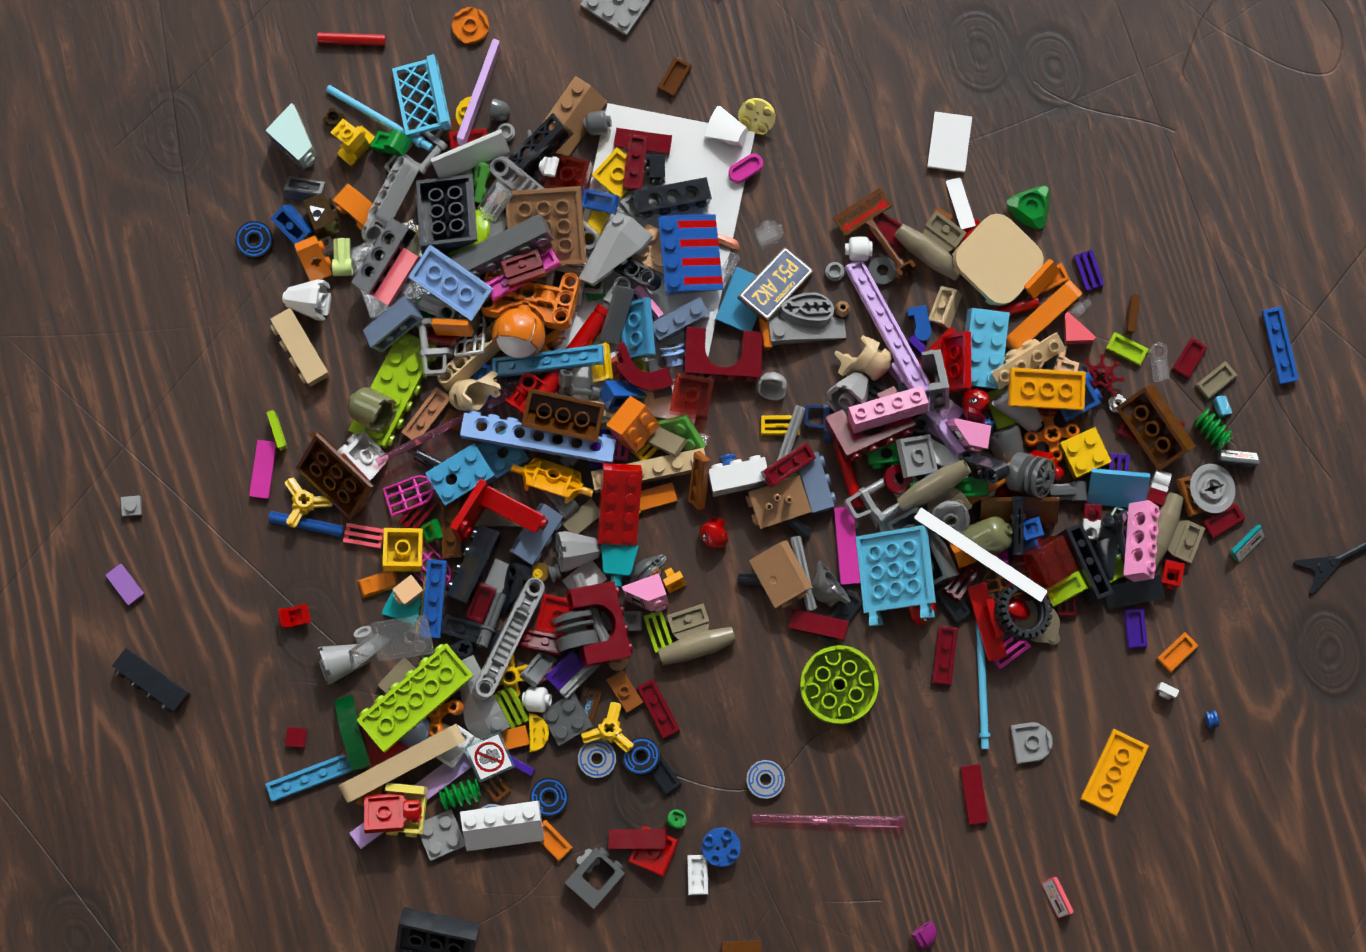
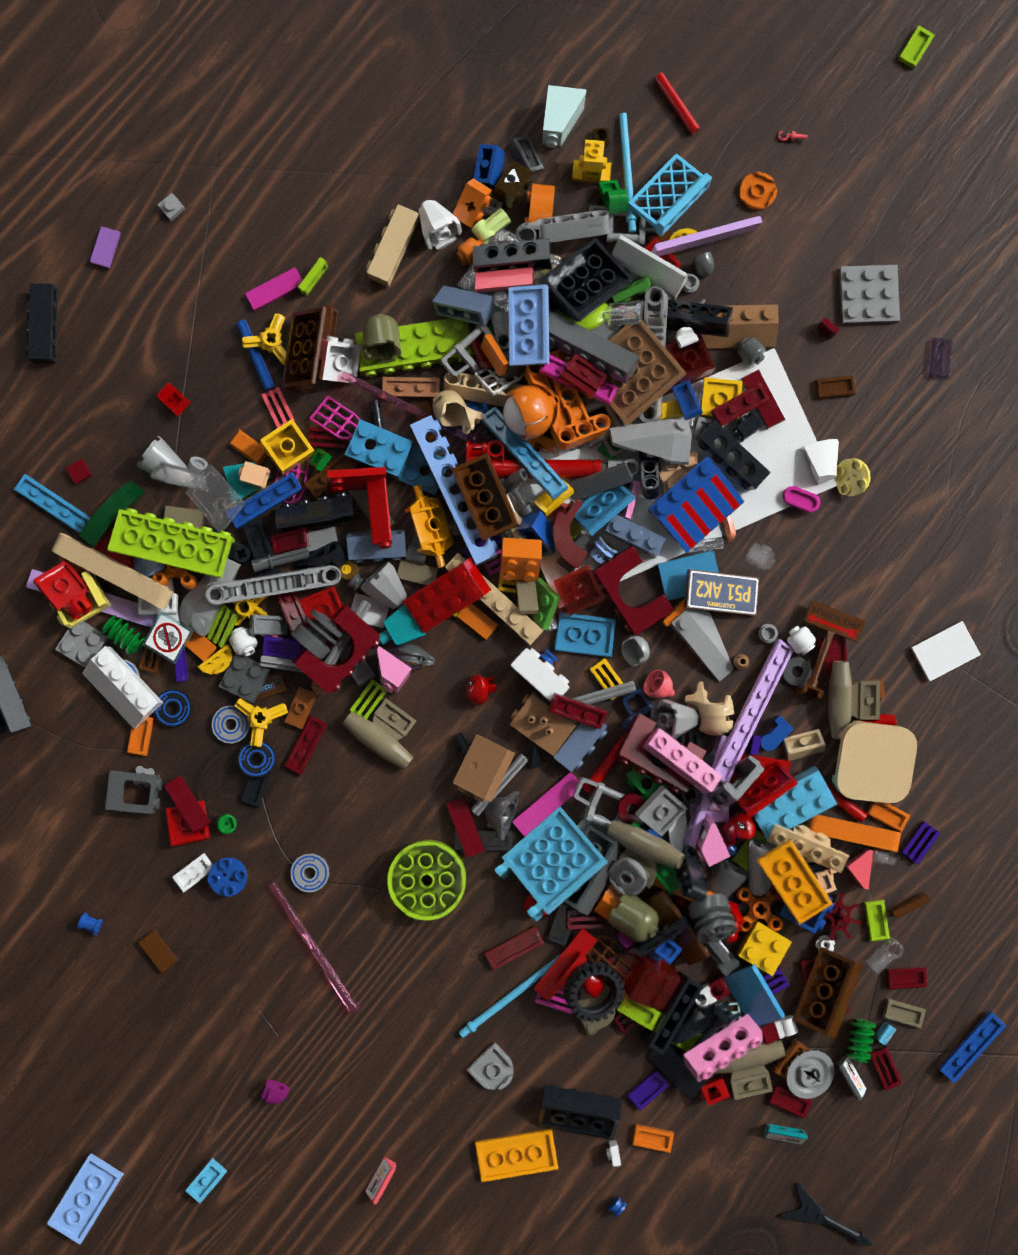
camera: 50 degrees right, 5 degrees up
(250, 229) = (451, 136): black tile -> none
(348, 291) = (465, 251): none -> orange head
(622, 49) = (828, 327): none -> dark red tile
(673, 581) = (418, 683): light orange tile -> none
(699, 480) = (513, 646): dark orange tile -> none
(730, 418) = (585, 634): none -> dark azure tile
(813, 387) = (658, 685): none -> coral helmet
(814, 309) = (727, 629): dark grey piece -> none
(960, 203) = (900, 696): white sticker -> none
(974, 794) = (417, 1052): dark red tile -> none
(981, 554) = (615, 924): white sticker -> none
(1031, 206) = (939, 757): green hat -> none
(1041, 278) = (885, 809): orange tile -> none
(1114, 695) = (579, 1112): none -> black slope
(1249, 433) = (879, 1052): none -> dark red tile

